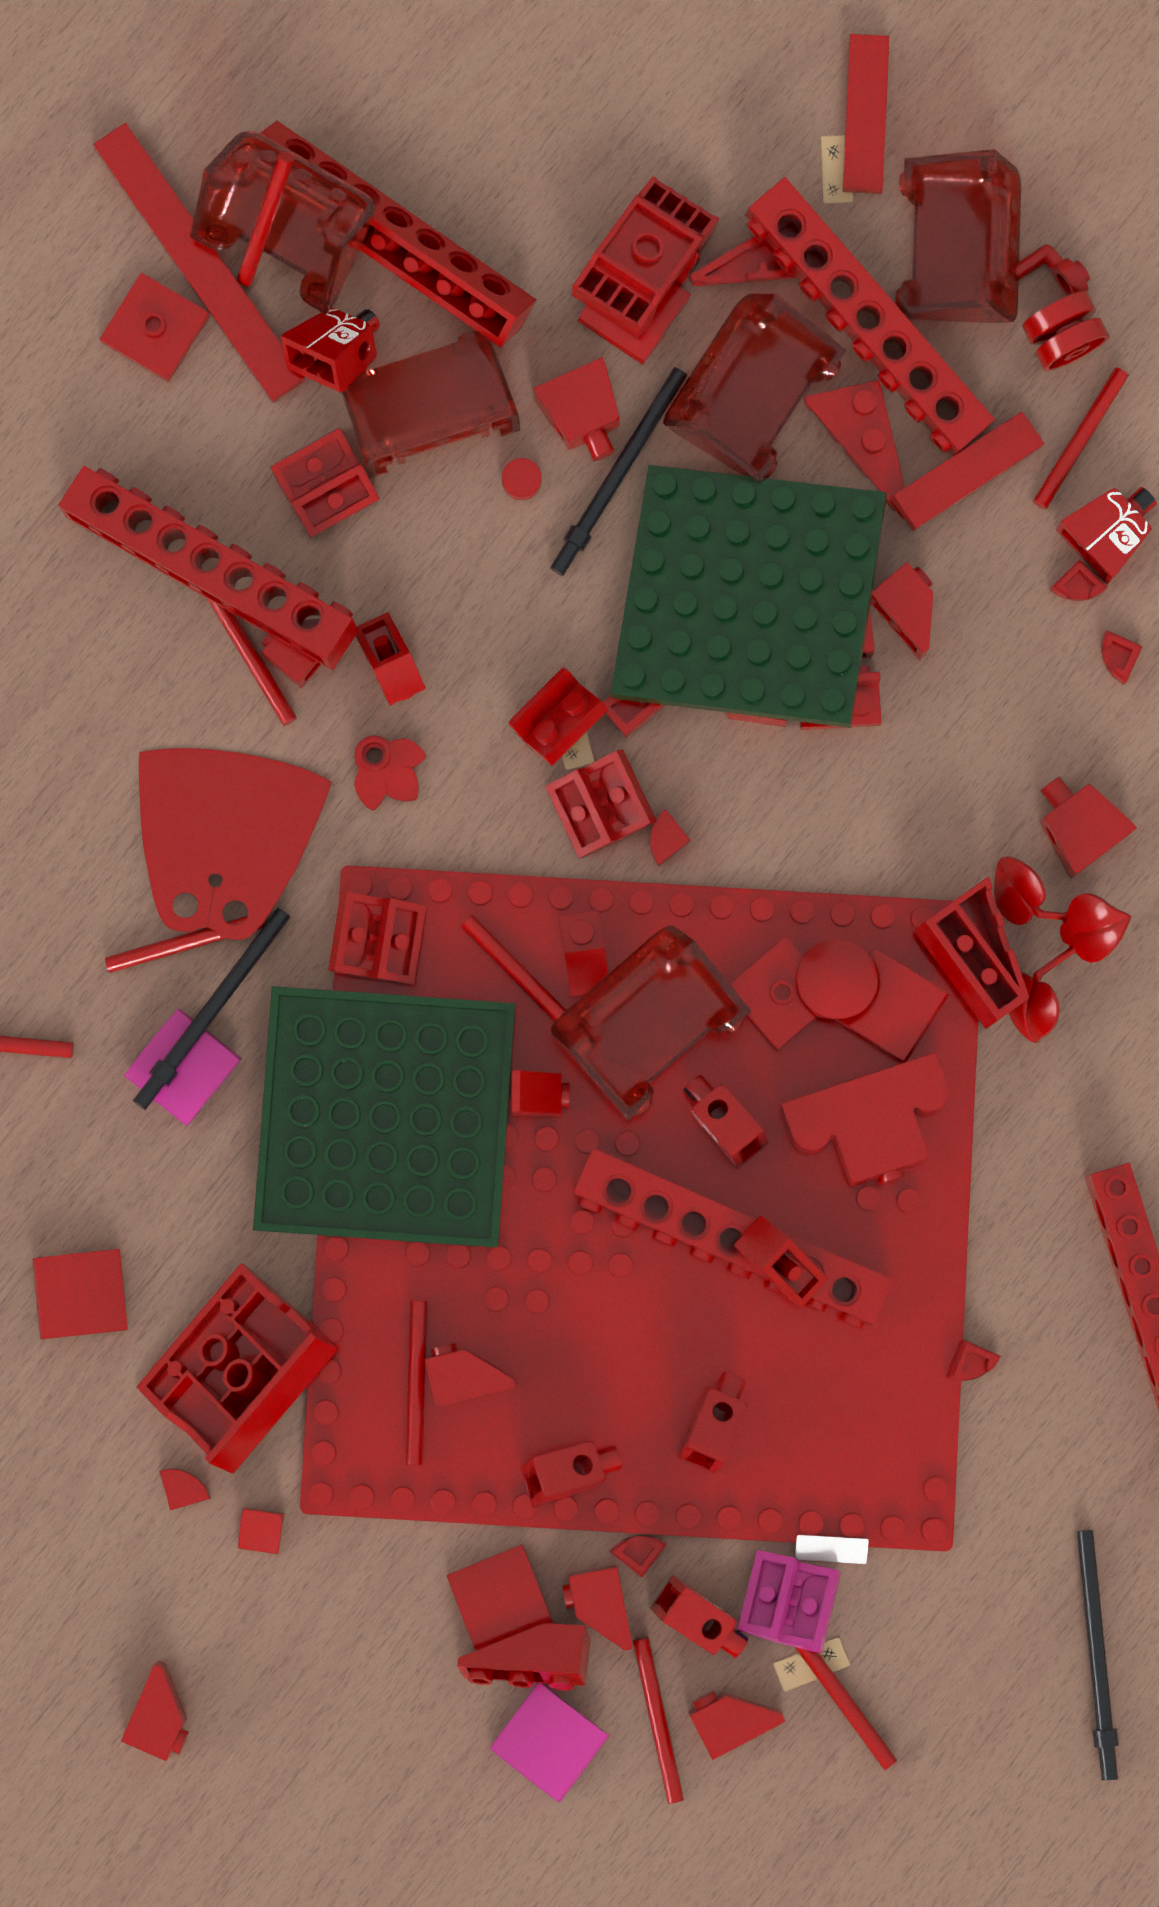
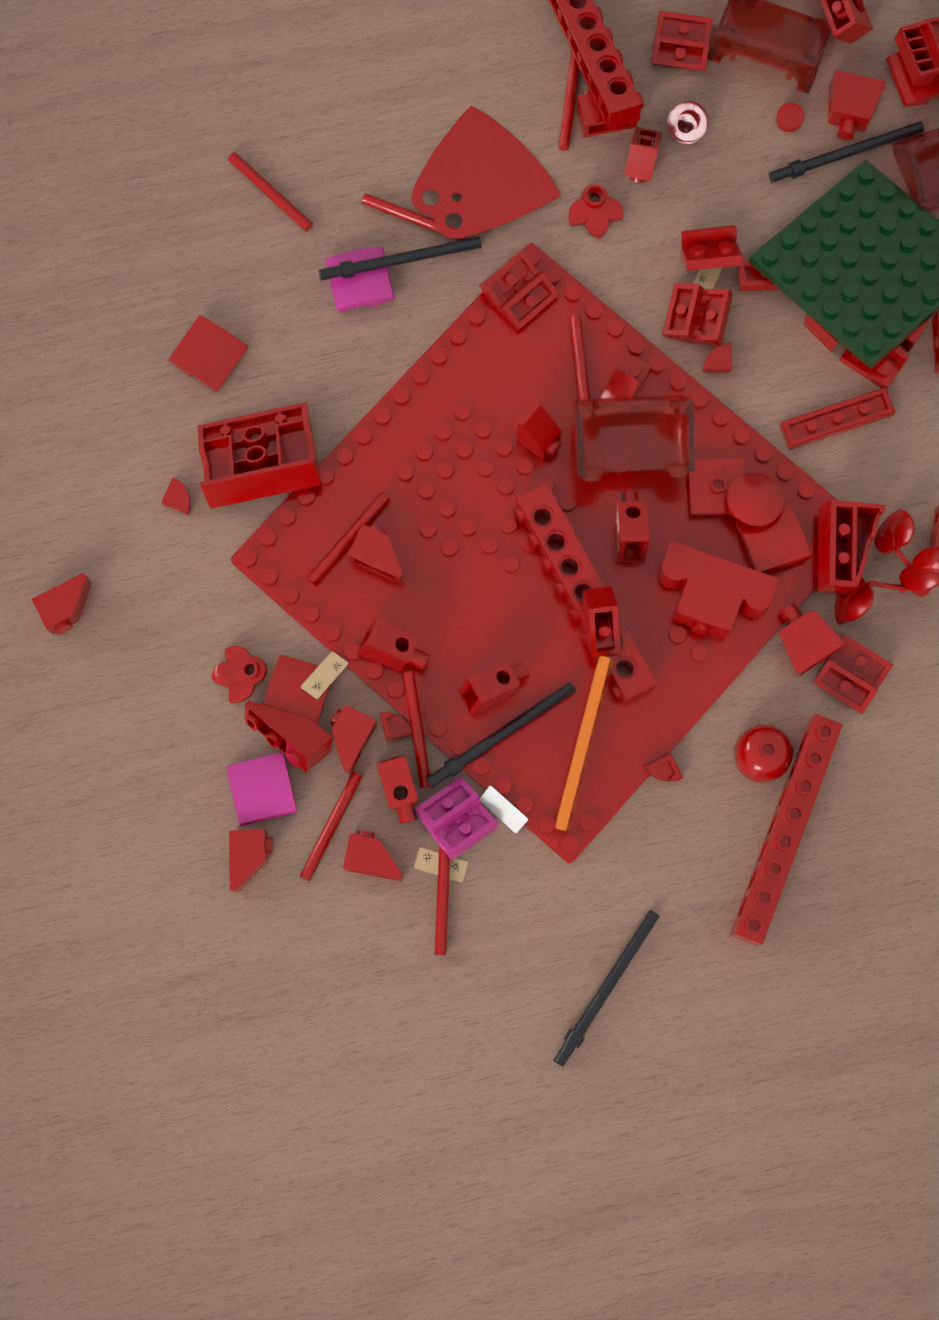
camera: 40 degrees right, 5 degrees down
(260, 1530) = (200, 551): red slope -> none
(384, 1117) = (445, 384): dark green plate -> none
(411, 581) = (688, 122): none -> plate
(414, 1637) = (235, 673): none -> red plate
(516, 1560) = (324, 675): none -> tan sticker
(594, 1827) = (247, 855): none -> red slope
(667, 1538) = (416, 728): none -> red bar
(741, 1546) = (454, 765): none -> black bar
(852, 803) = (837, 418): none -> red tile
(867, 1412) = (584, 743): none -> orange tile
(1016, 1091) = (808, 639): none -> red torso
(1065, 1257) = (763, 753): none -> red cylinder
(1093, 1088) = (853, 674): none -> red slope

